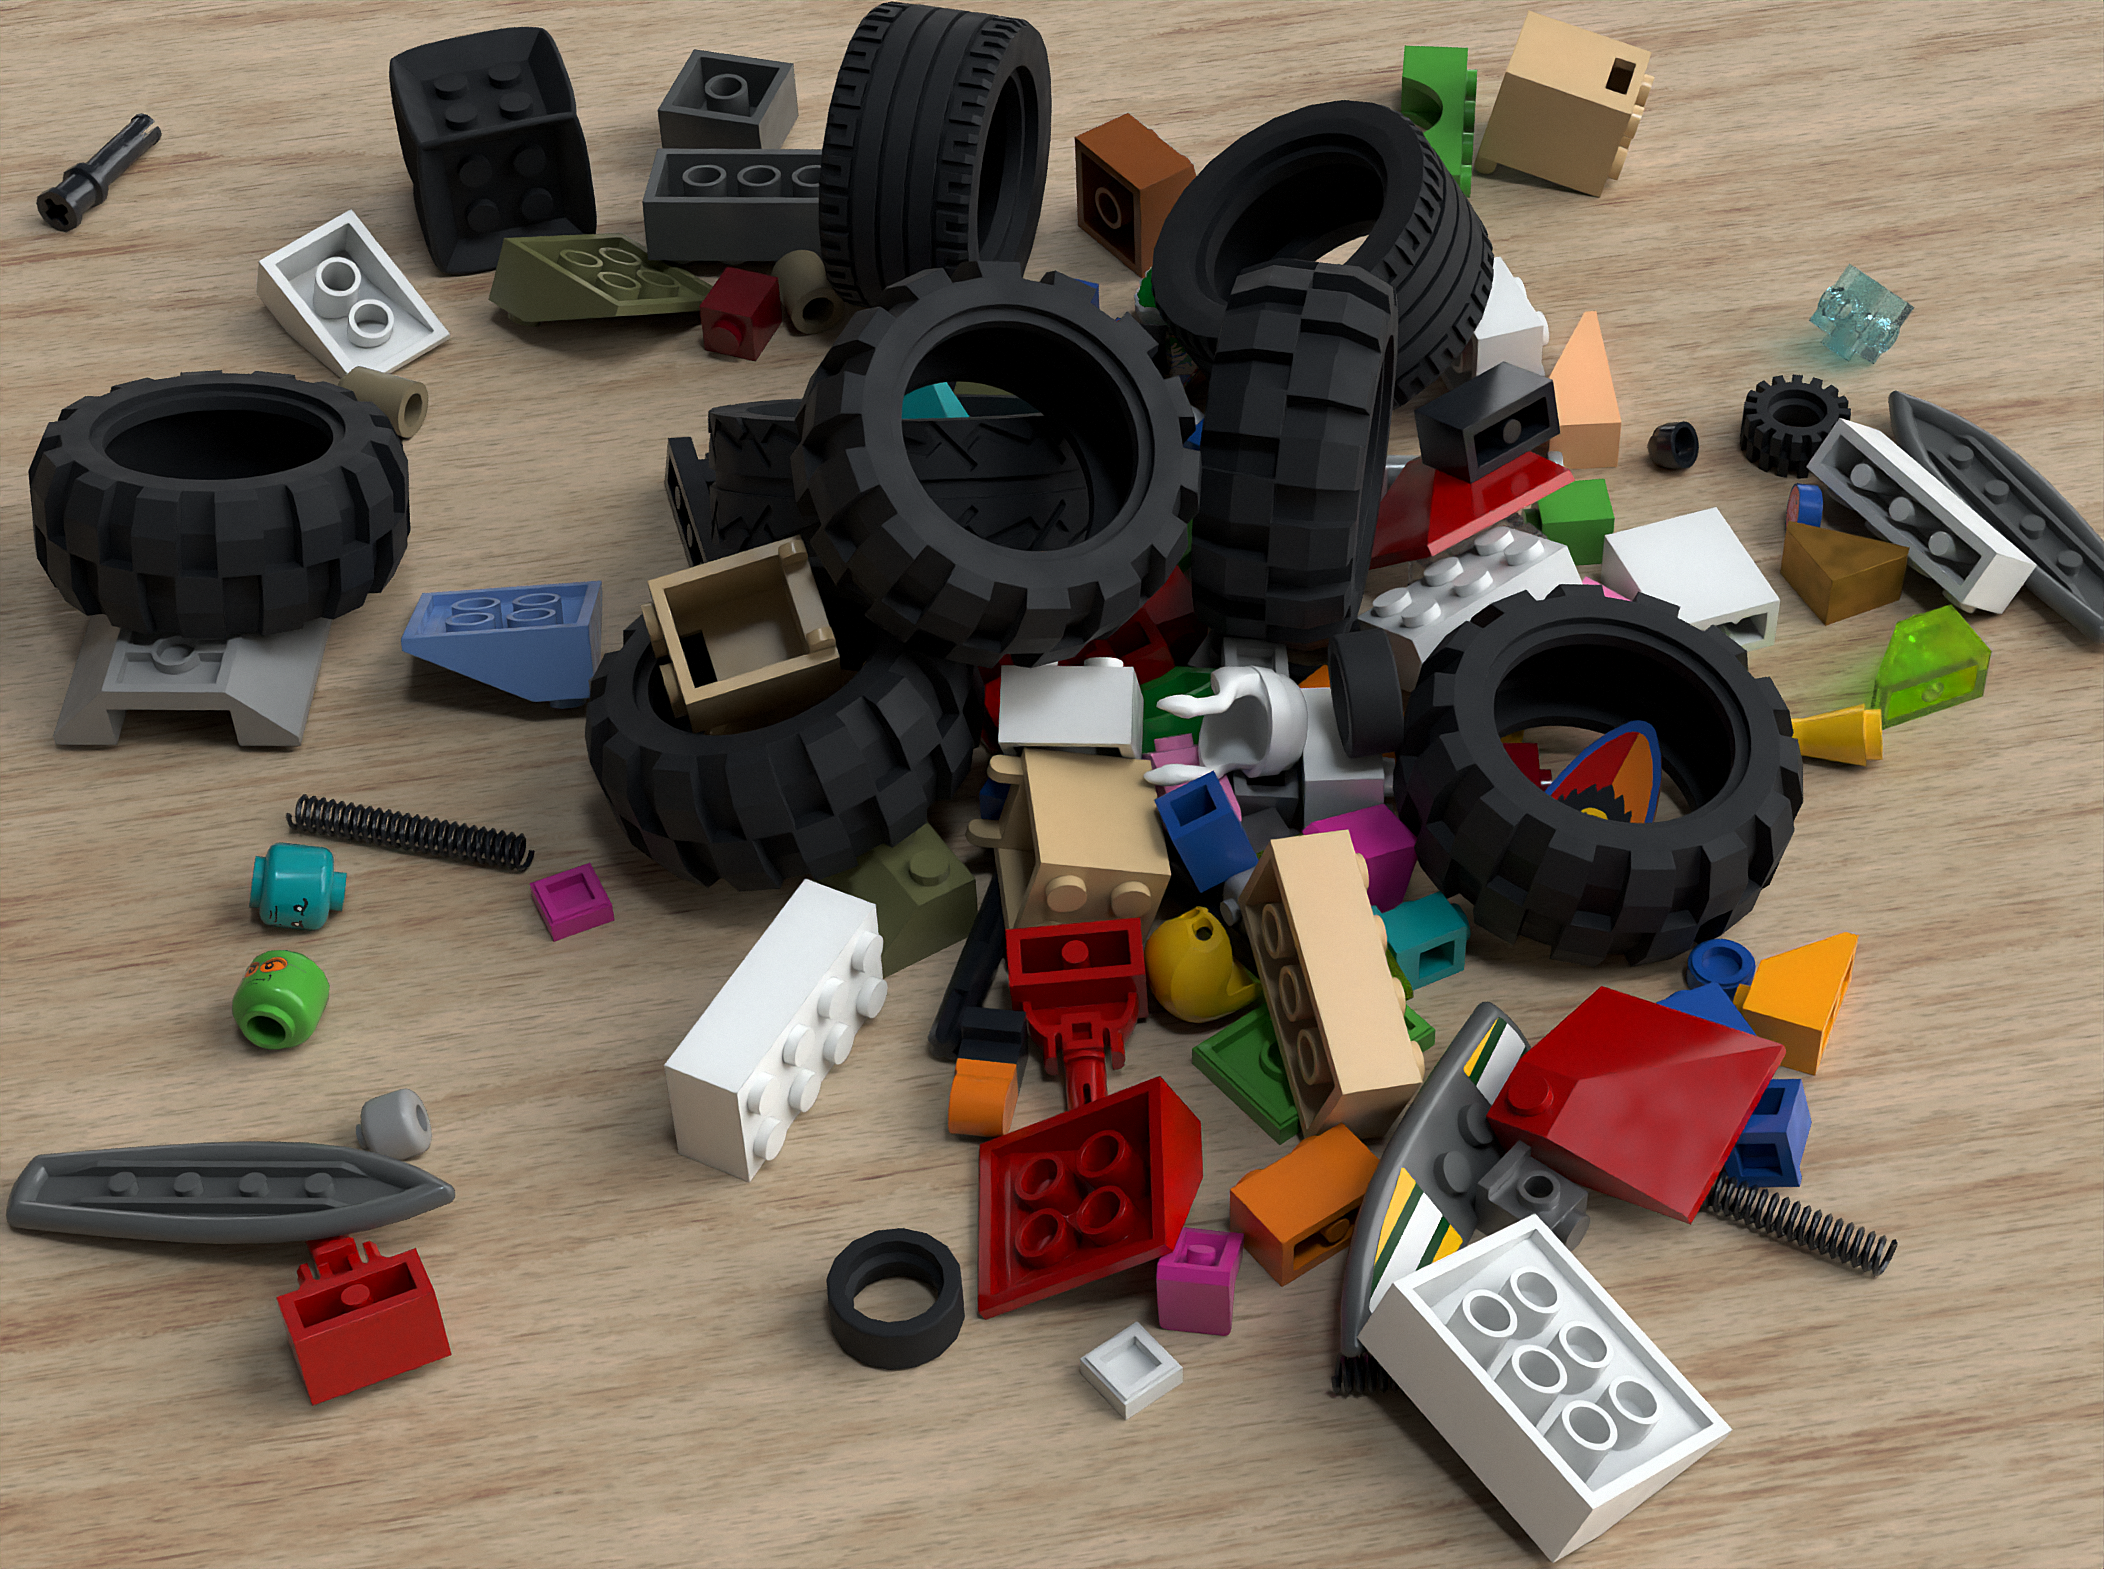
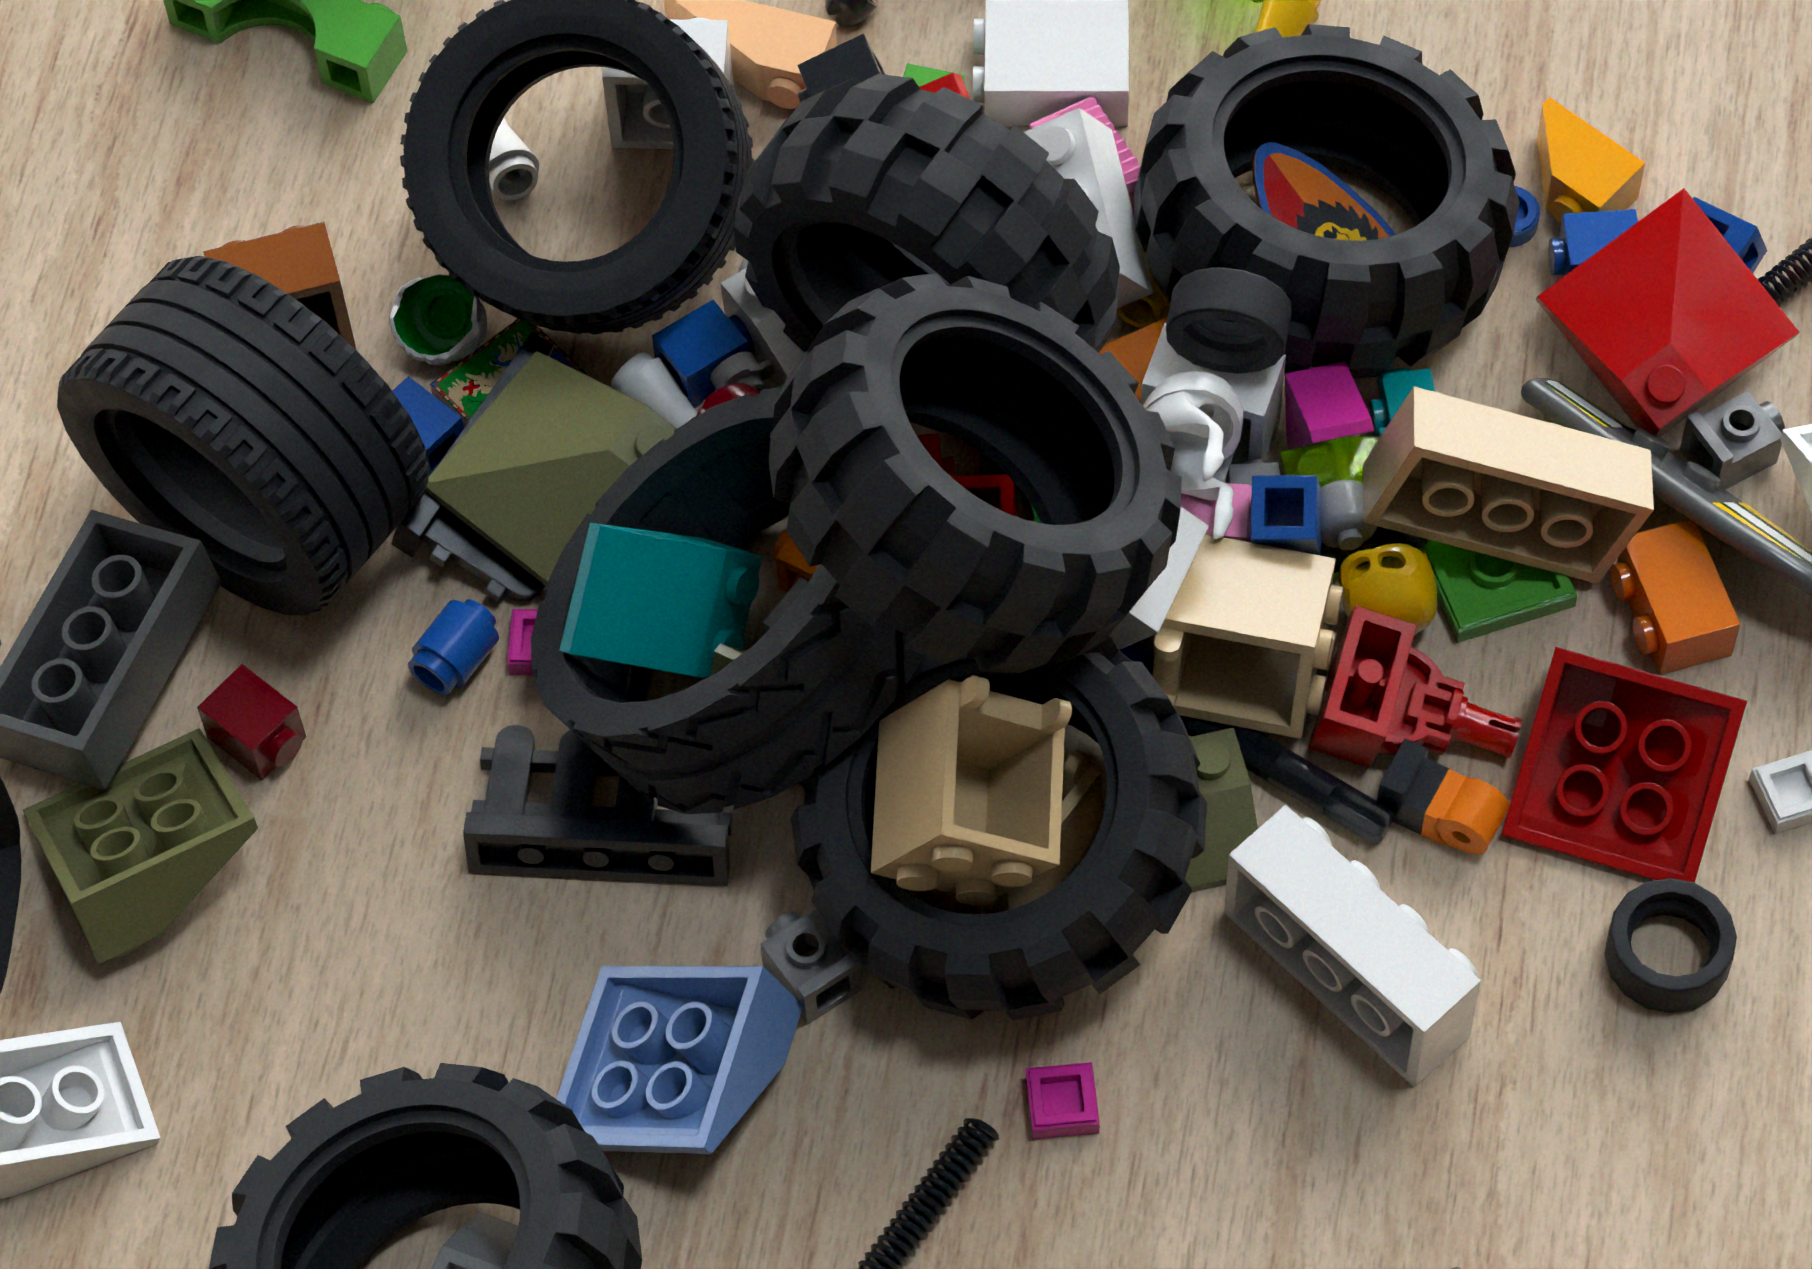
camera: 70 degrees left, 15 degrees up
(397, 397) = (219, 1112): dark tan brick -> none
(807, 292) = (254, 642): dark tan brick -> none
(1199, 1281) = (1757, 682): dark pink slope -> none

